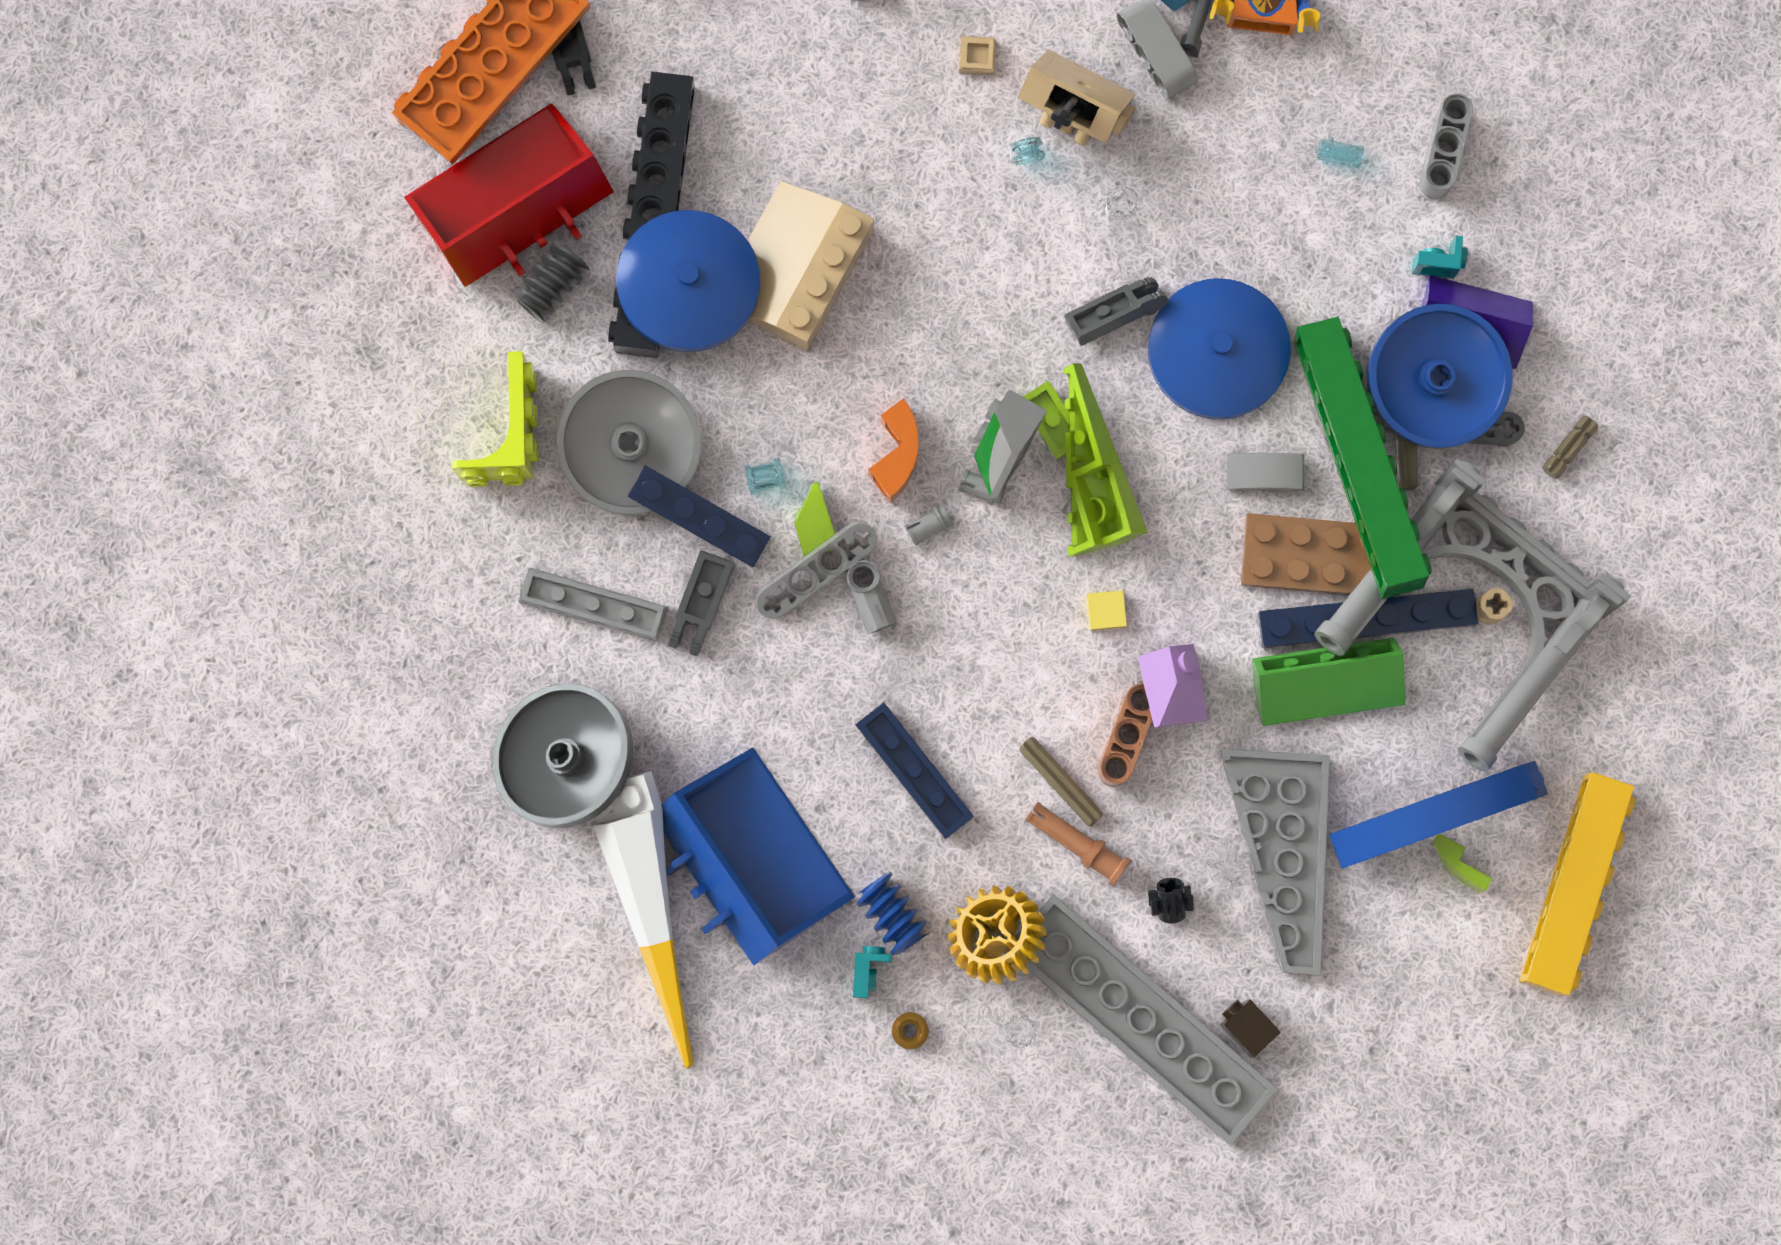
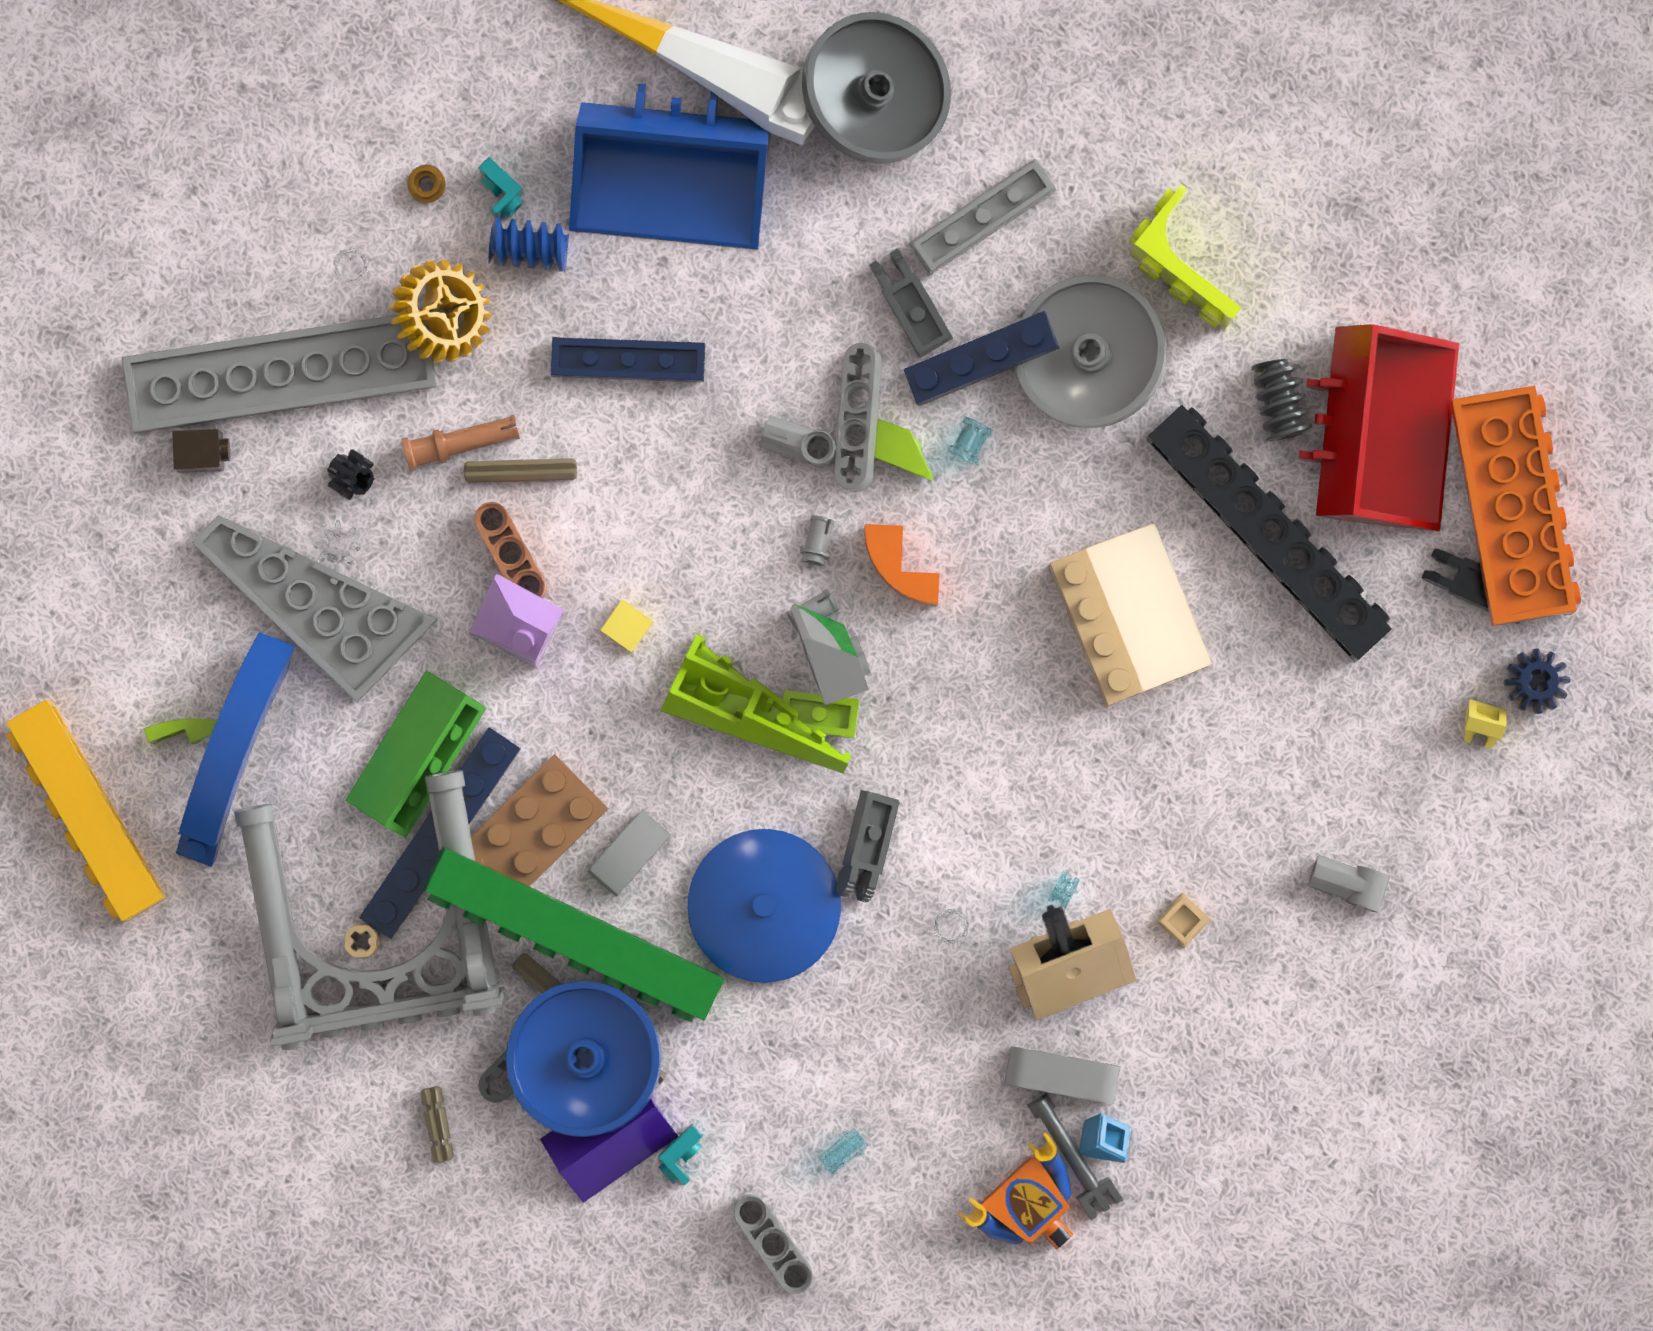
camera: 130 degrees right, 5 degrees up
(688, 281) = (1184, 509): blue dish -> none

